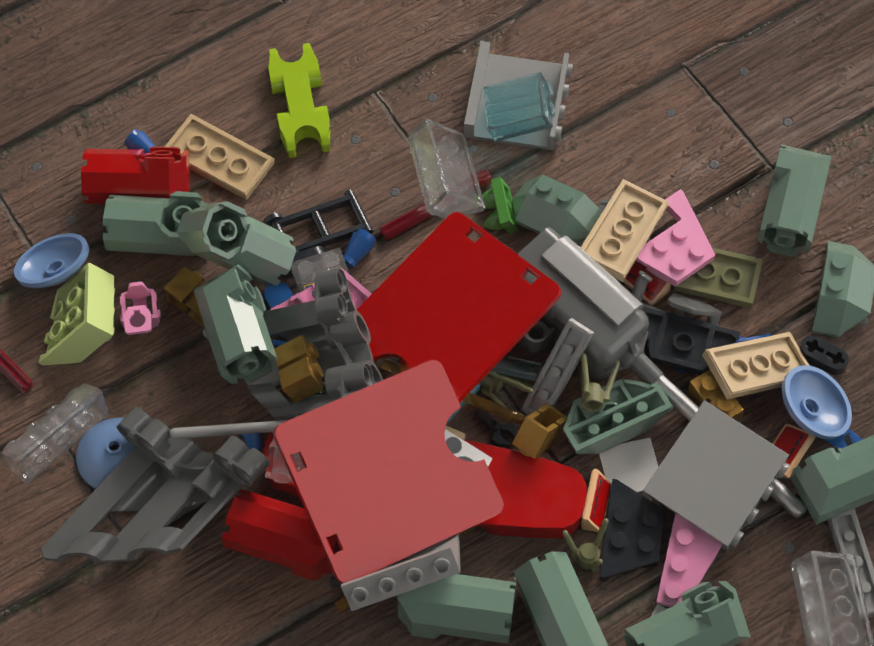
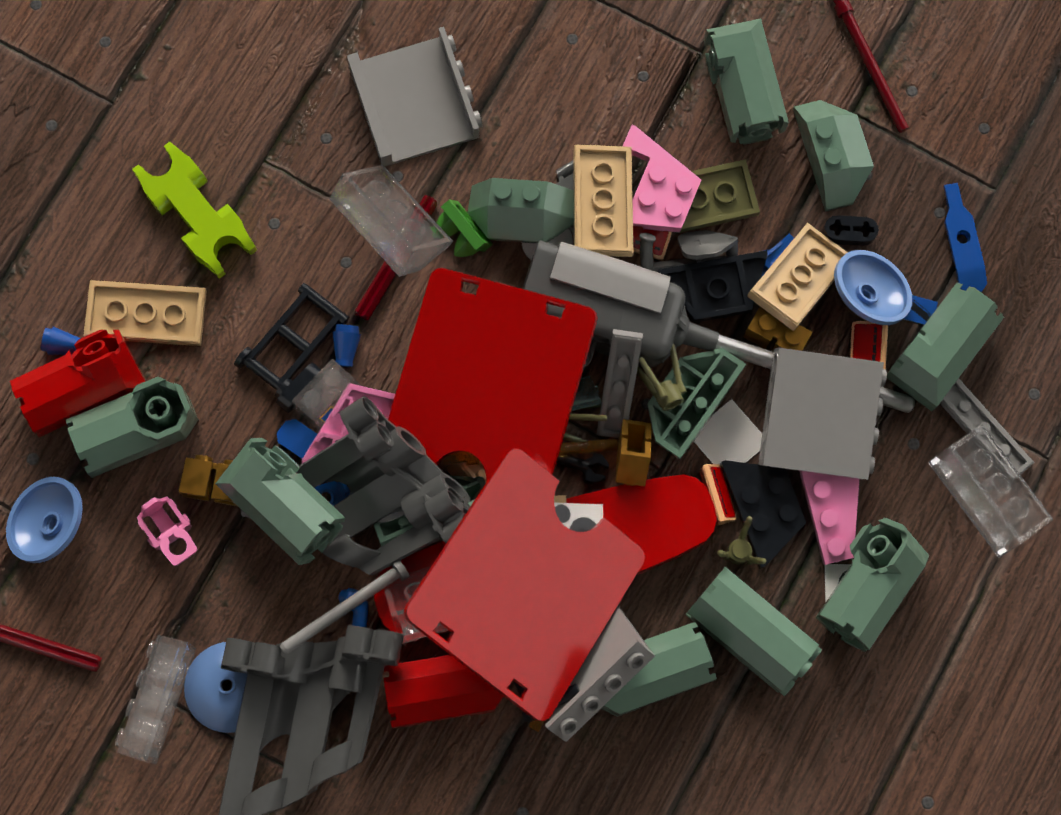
camera: 35 degrees left, 15 degrees up
(81, 317) = (110, 563): yellowish green wedge -> none
(230, 238) = (231, 411): sand green brick -> none
(299, 369) = (377, 521): pearl gold piece -> none
(518, 106) = (426, 111): clear light blue brick -> none

